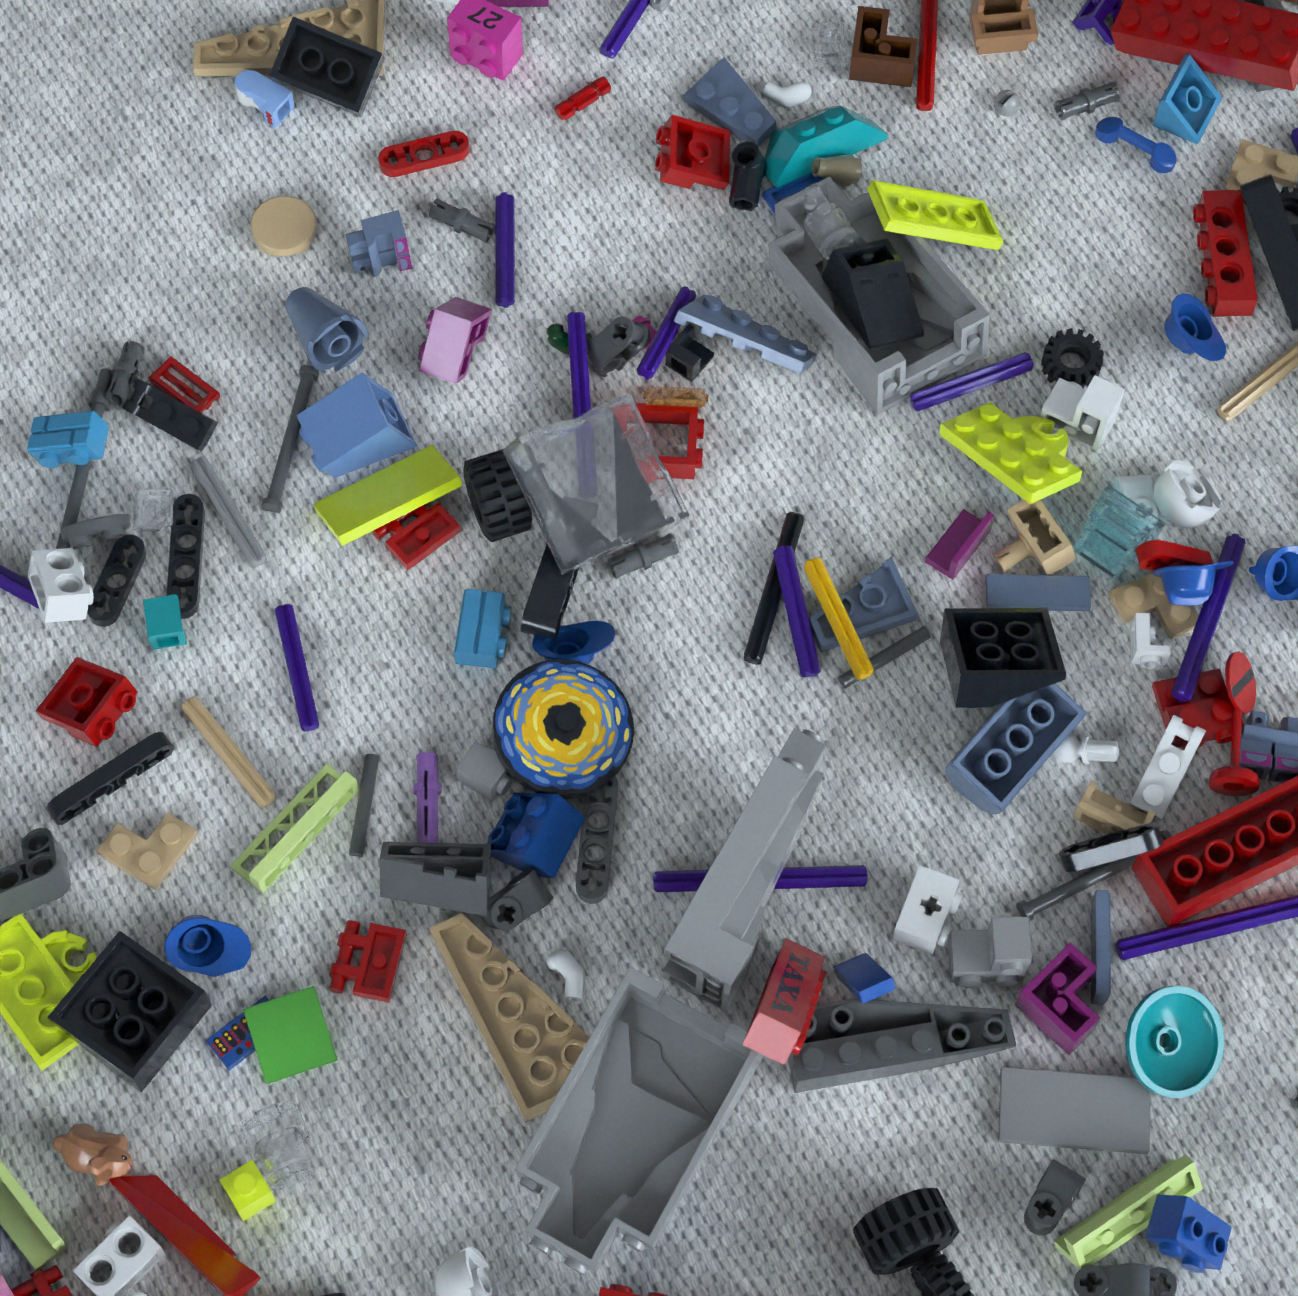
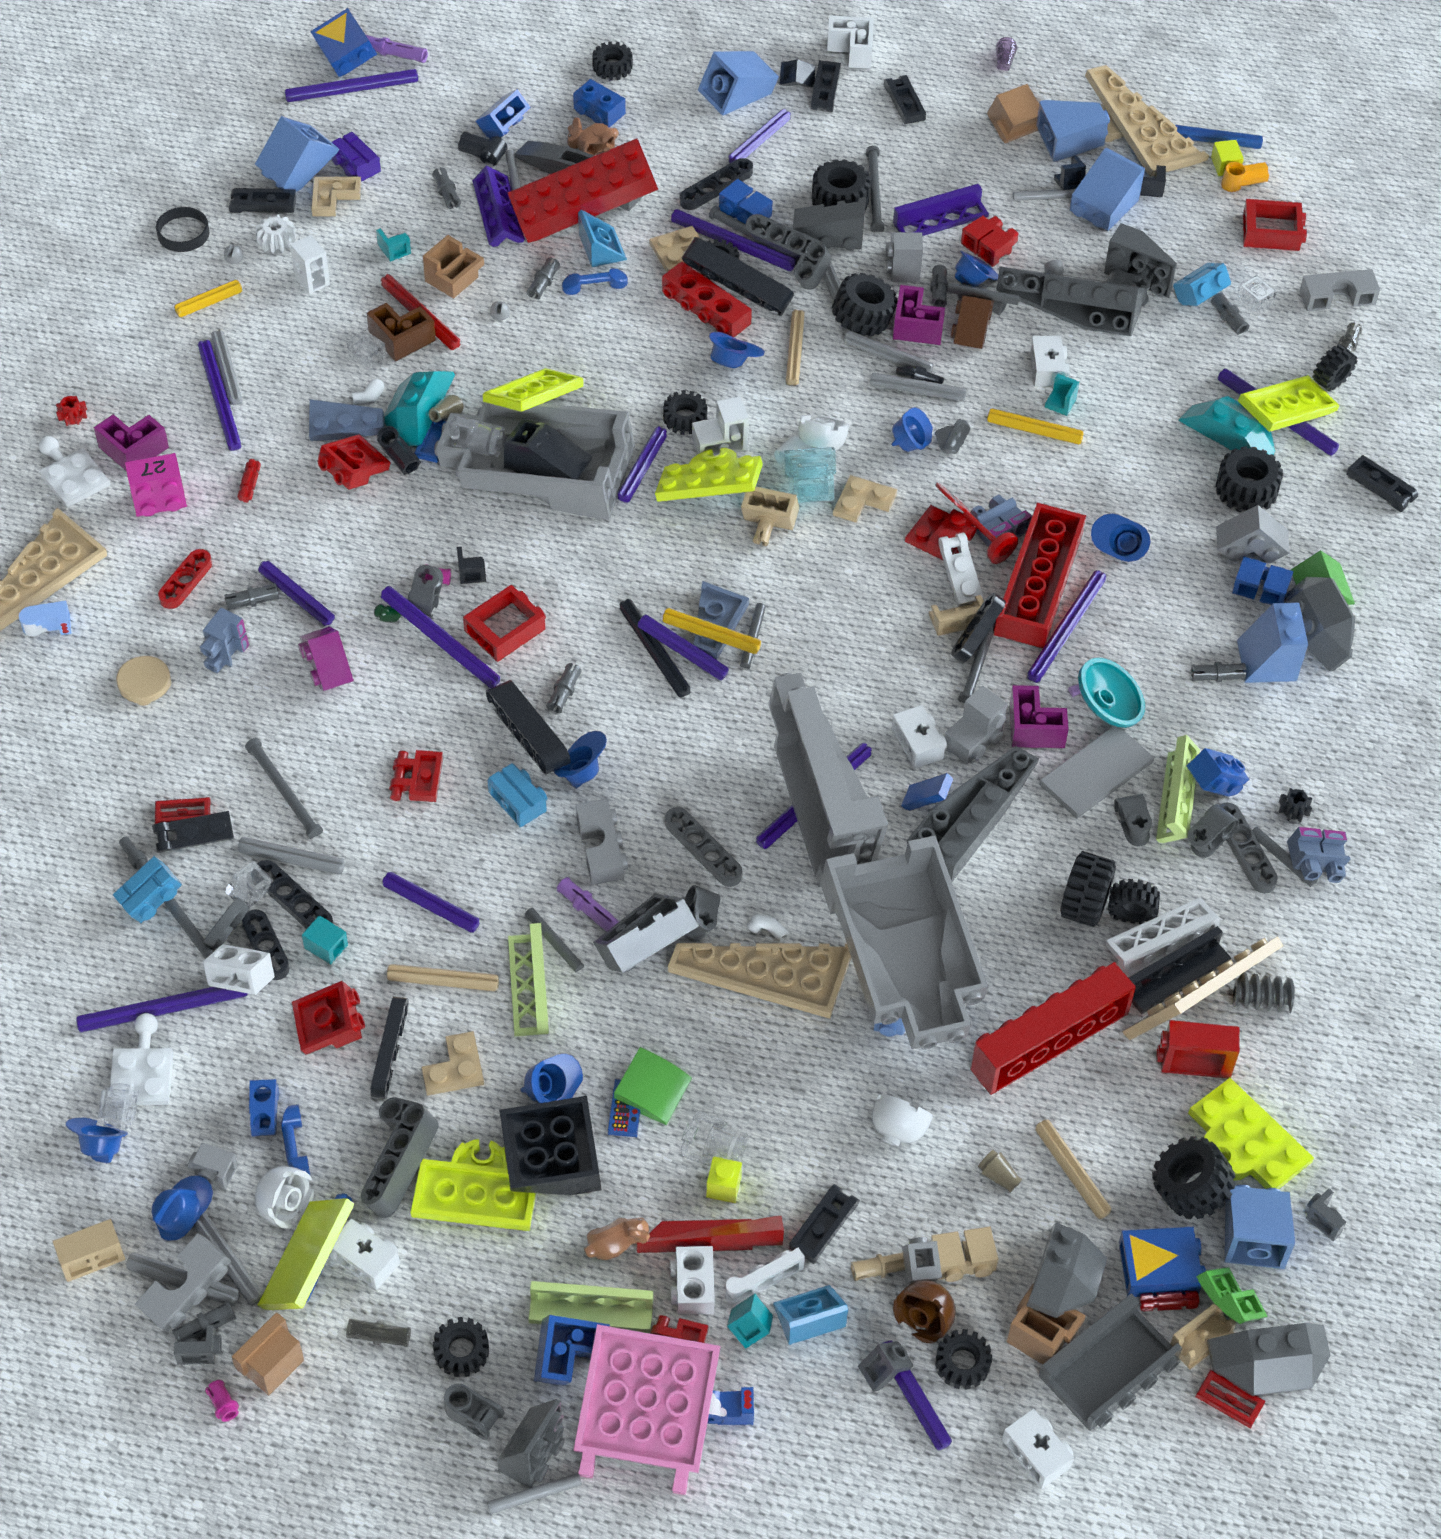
camera: 45 degrees left, 10 degrees down
(125, 373) = (138, 831): dark grey pin -> none
(325, 330) = (237, 711): sand blue cone -> none
(327, 66) = (77, 568): black brick -> none
(354, 427) = (319, 749): medium blue slope -> none
(378, 964) = (659, 1009): red plate -> none
(387, 494) = (380, 769): neon yellow tile -> none
(496, 496) = (452, 714): black tyre -> none
(535, 832) = (669, 868): blue slope -> none
(562, 728) = (627, 803): dish -> none
(595, 483) = (508, 658): clear tile -> none
(664, 335) = (448, 562): dark purple axle -> none
(675, 396) = (490, 591): clear orange piece -> none
(745, 333) = (494, 530): sand blue wing -> none
(786, 1003) = (923, 819): red brick -> none
(959, 543) = (729, 547): magenta panel -> none
(999, 654) = (818, 579): black slope -> none
(1013, 747) = (872, 619): sand blue brick -> none
(1038, 591) = (796, 541): sand blue tile -> none
(1090, 750) = (899, 604): white axle -> none
(1101, 947) = (1017, 675): sand blue tile -> none
(1142, 644) = (879, 522): white bracket -> none
(1161, 554) = (853, 465): red beam -> none
(1189, 583) = (874, 470): blue piece -> none
(1208, 621) = (899, 483): dark purple axle -> none

